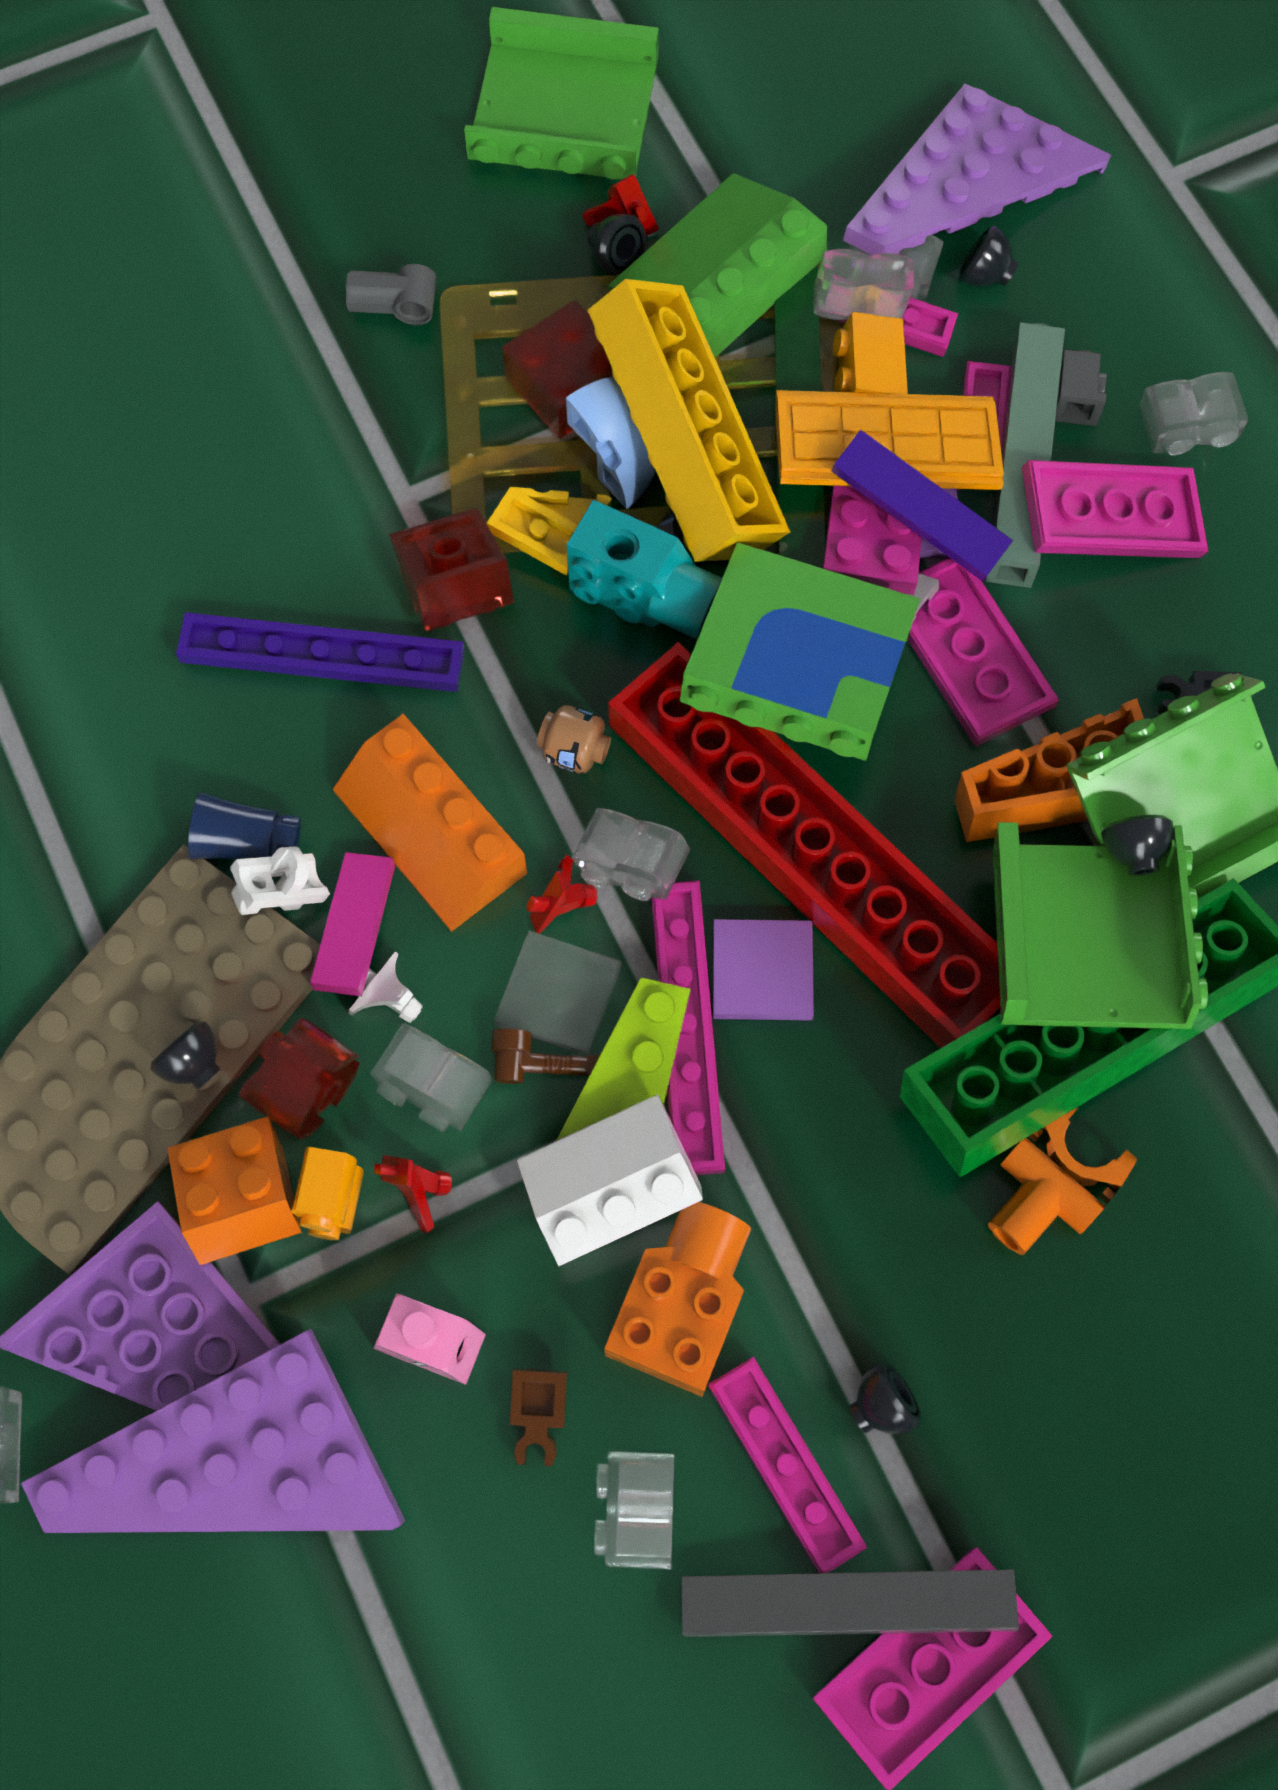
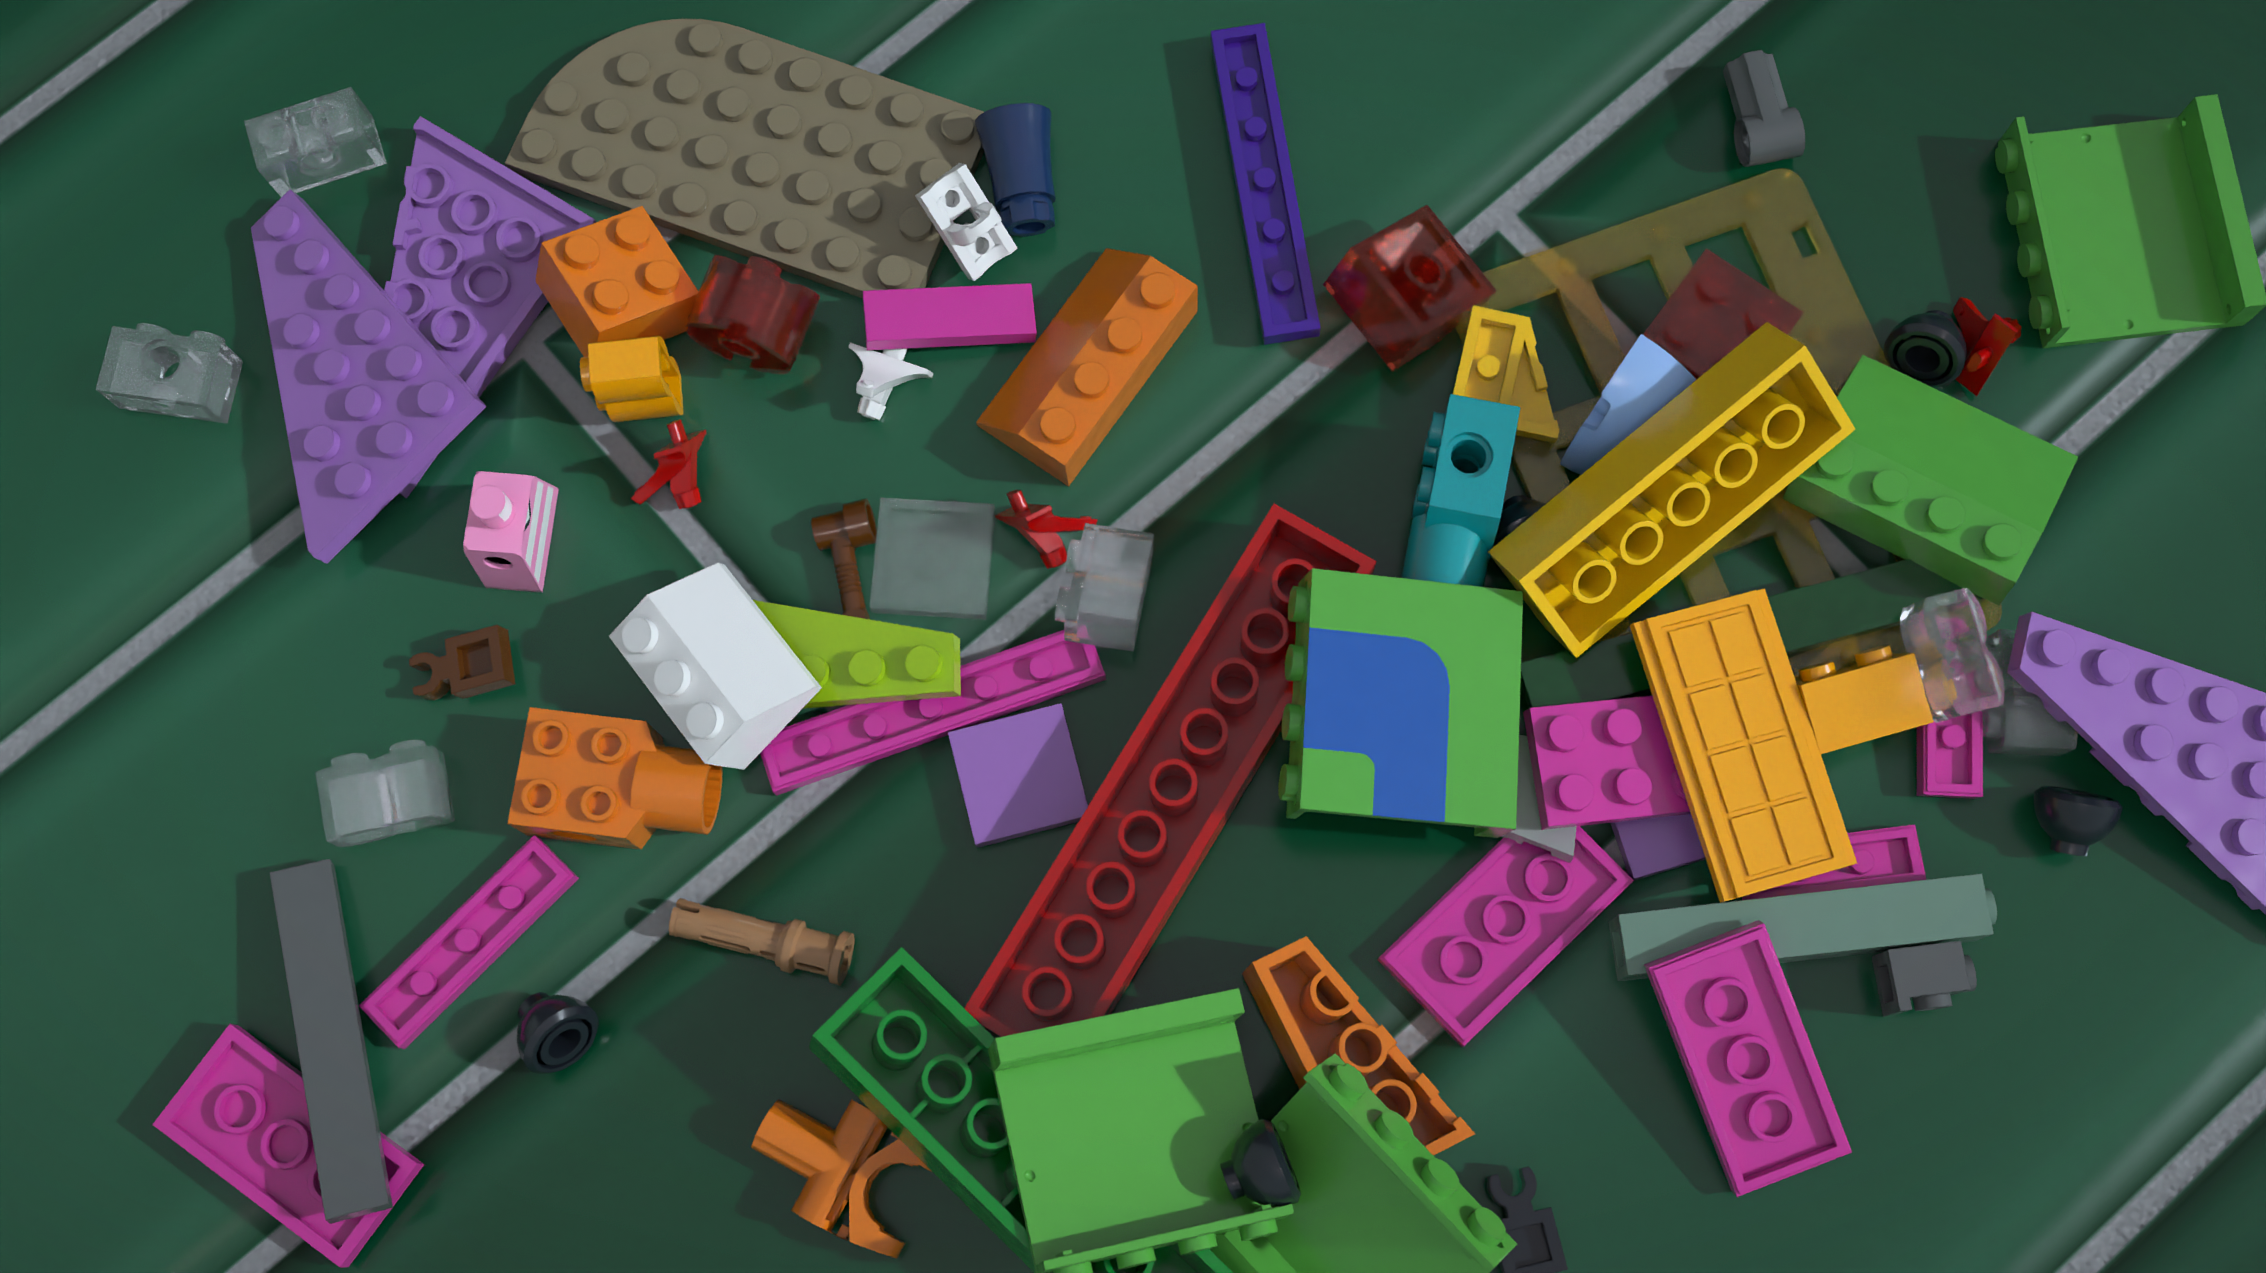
camera: 80 degrees right, 5 degrees up
(134, 1661) = (199, 387): none -> clear brick
(189, 1057) = (742, 194): black brick -> none
(430, 1077) = (794, 450): clear brick -> none
(573, 739) = (1237, 486): medium nougat head -> none
(859, 1185) = (788, 945): none -> medium nougat pin
(921, 505) = (1652, 803): dark purple tile -> none
(1193, 413) = (1936, 1137): clear brick -> none

